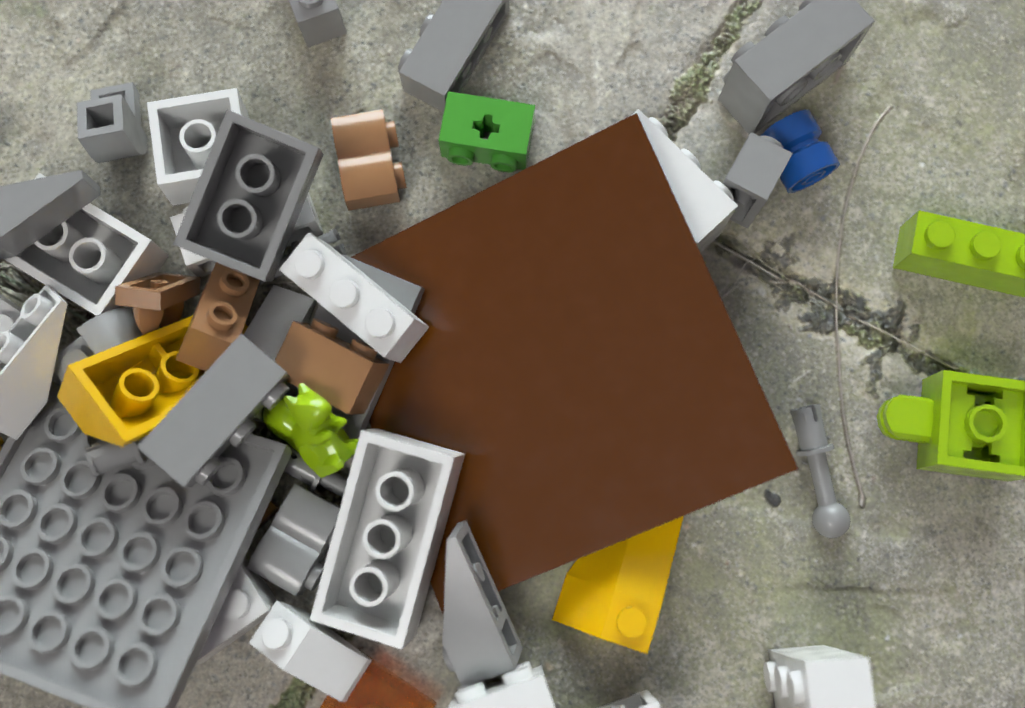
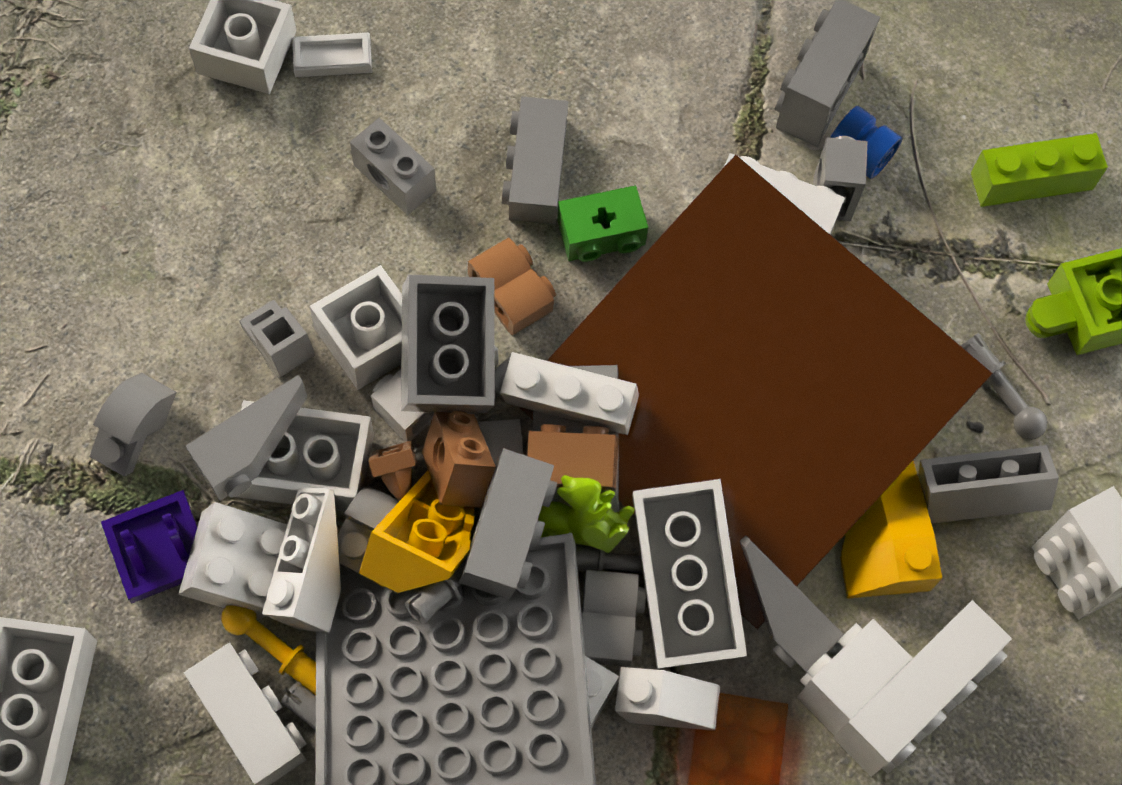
camera: 30 degrees left, 10 degrees down
(749, 571) = (988, 483): none -> light grey brick

